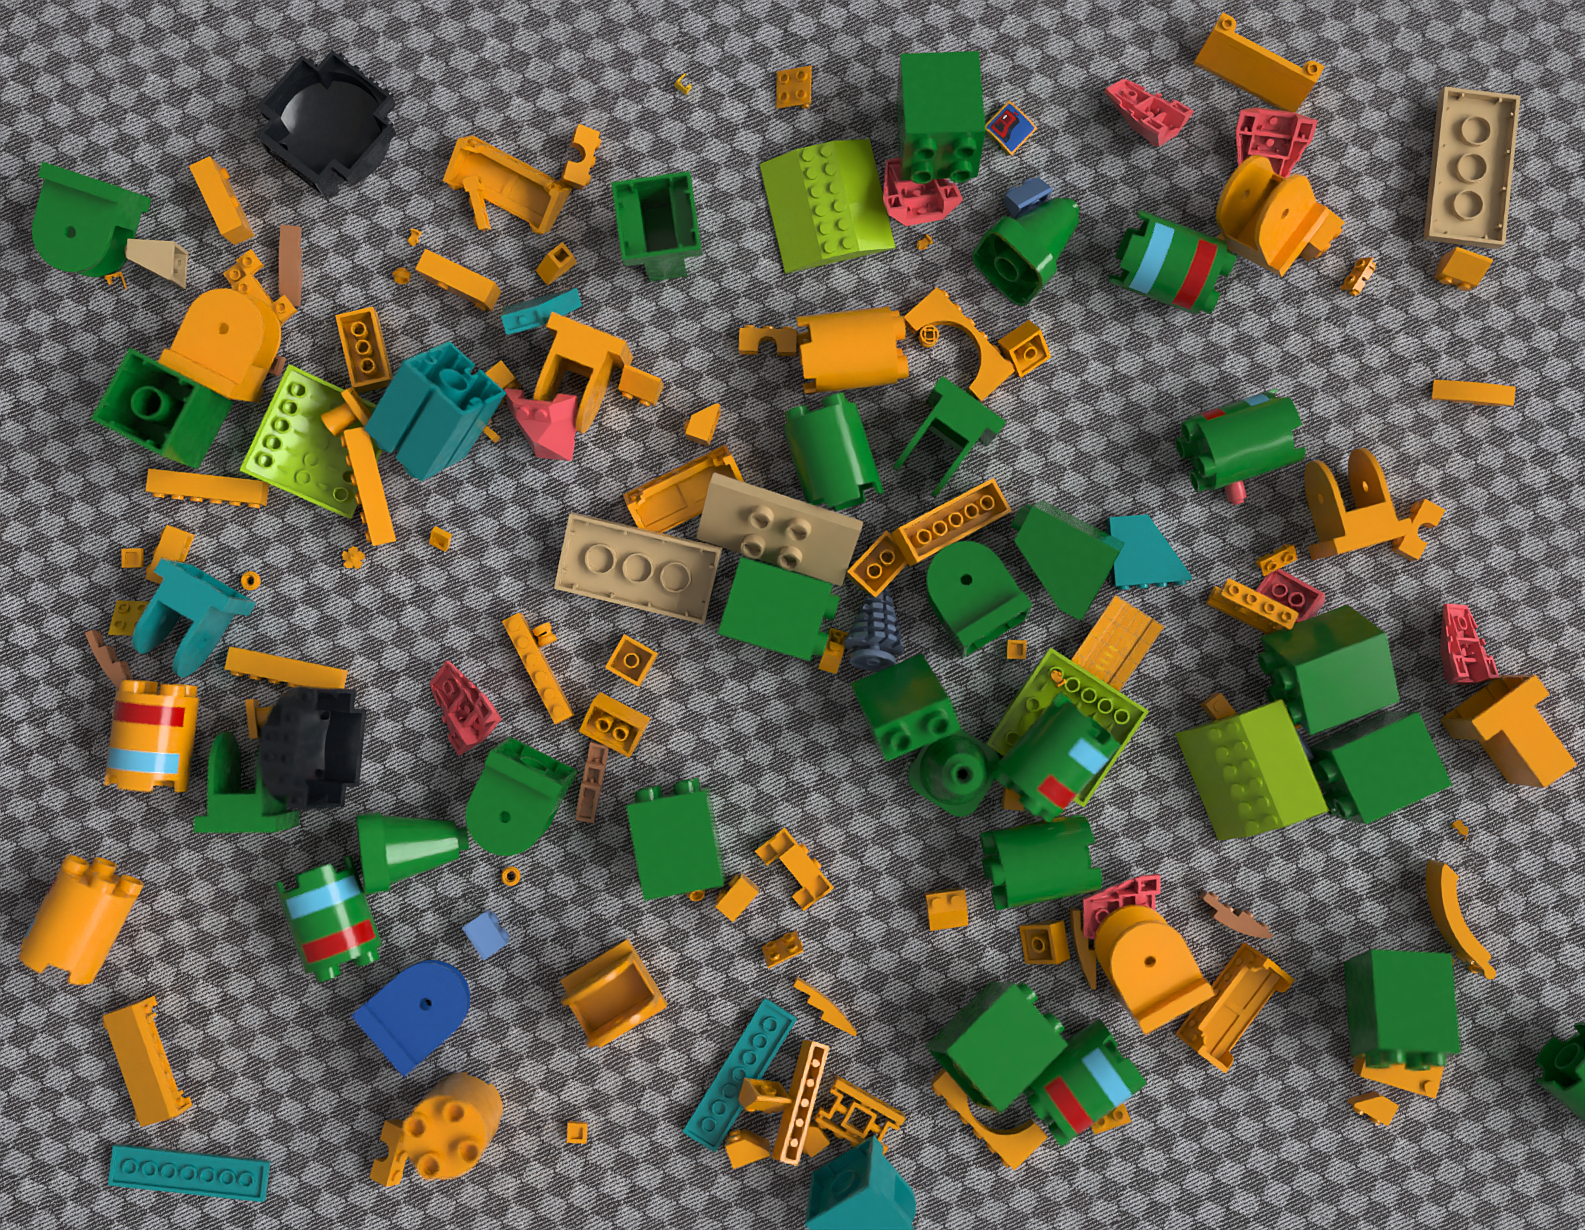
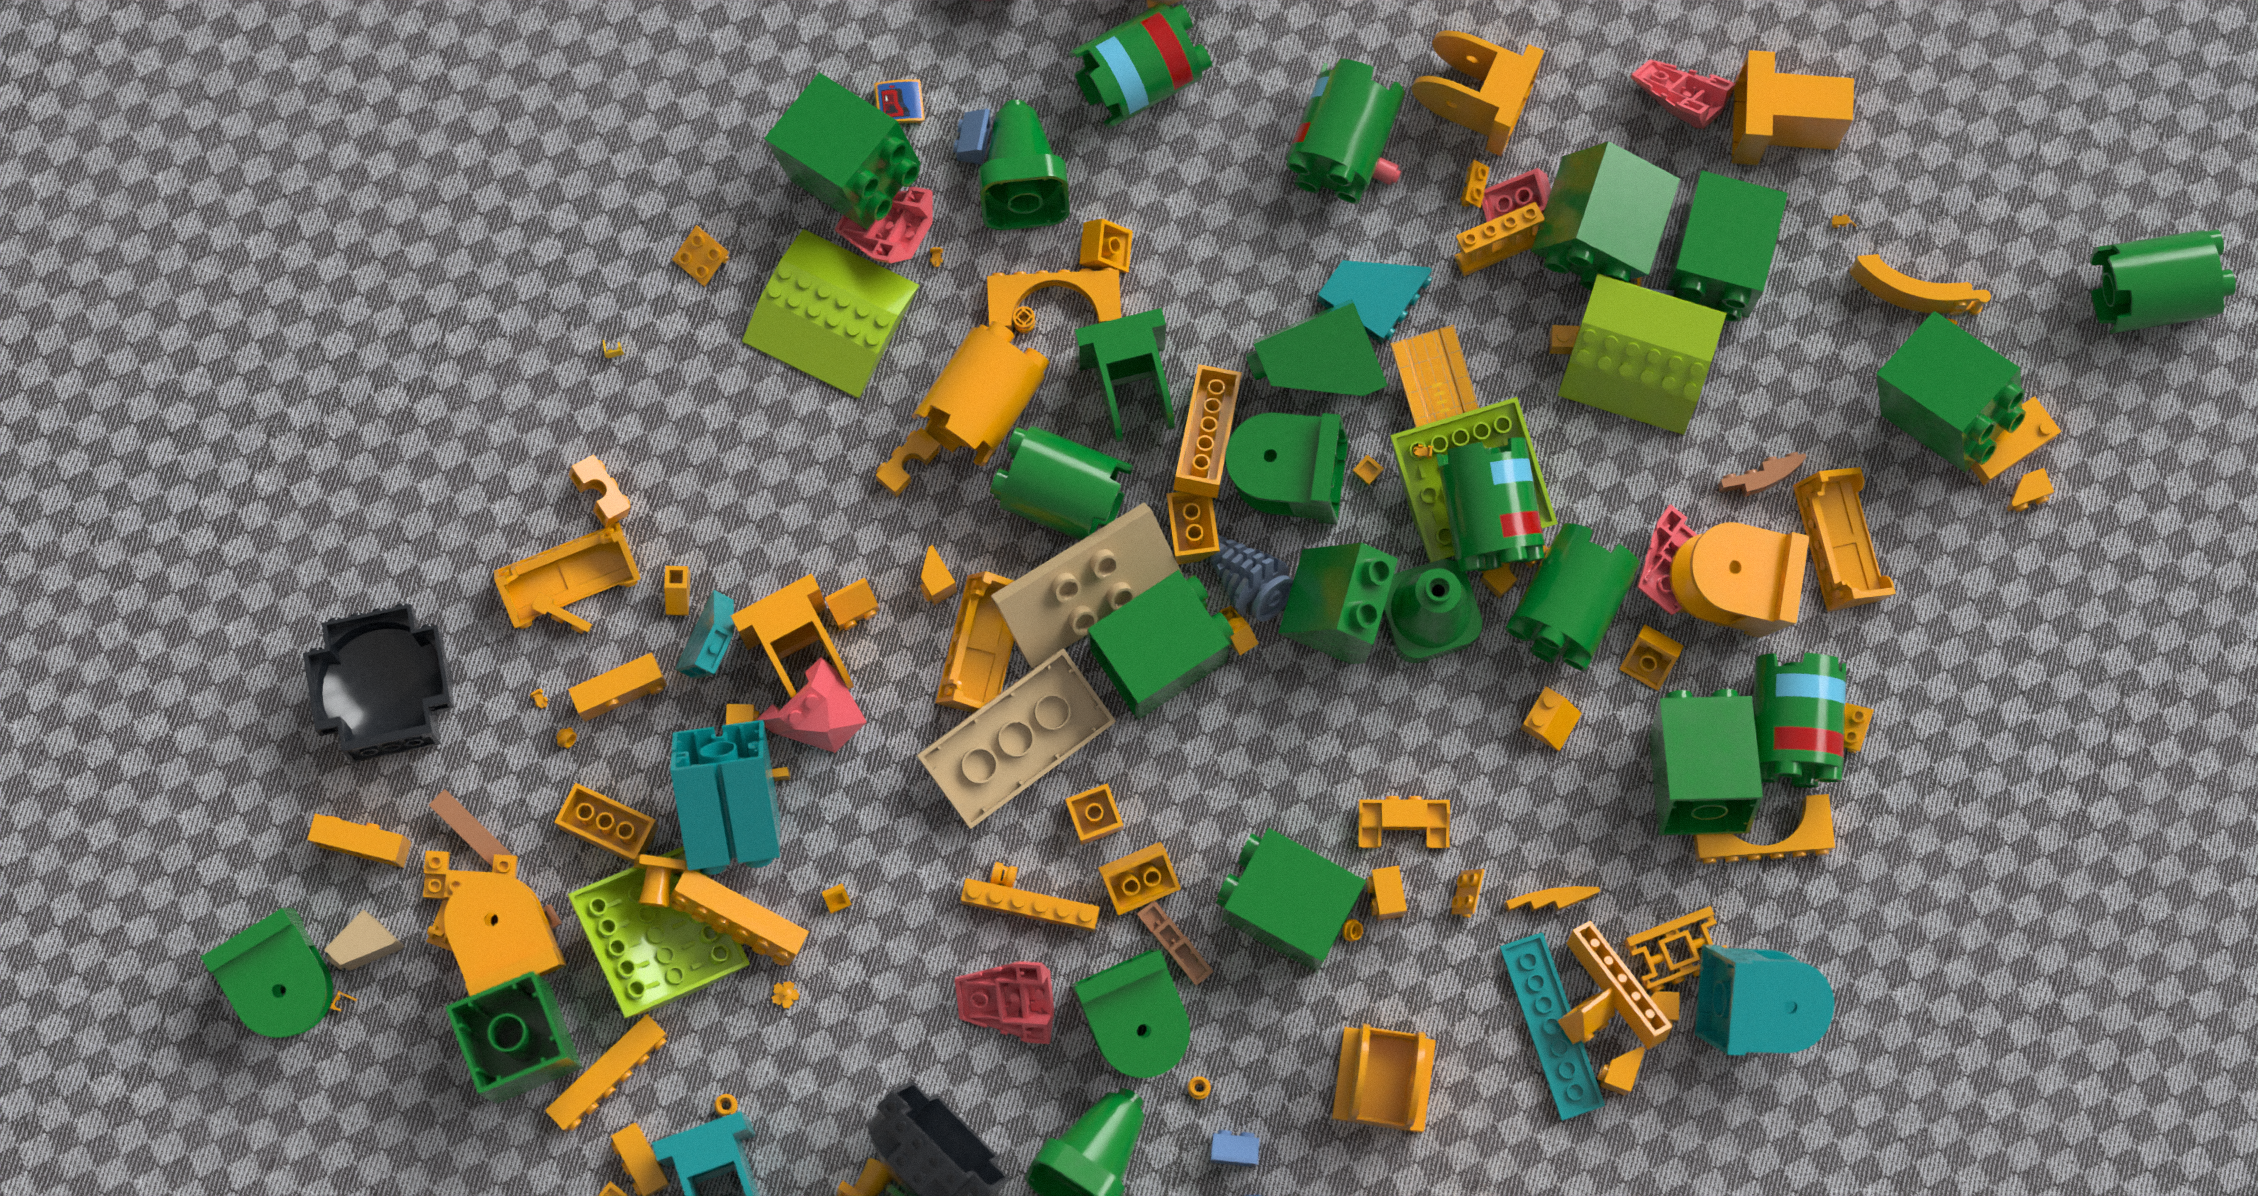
camera: 45 degrees left, 10 degrees down
(283, 669) = (829, 1143): light orange brick -> none
(657, 223) = (731, 461): green piece -> none
(1085, 954) = (1694, 631): light orange slope -> none
(1424, 514) = (1554, 64): light orange arch -> none

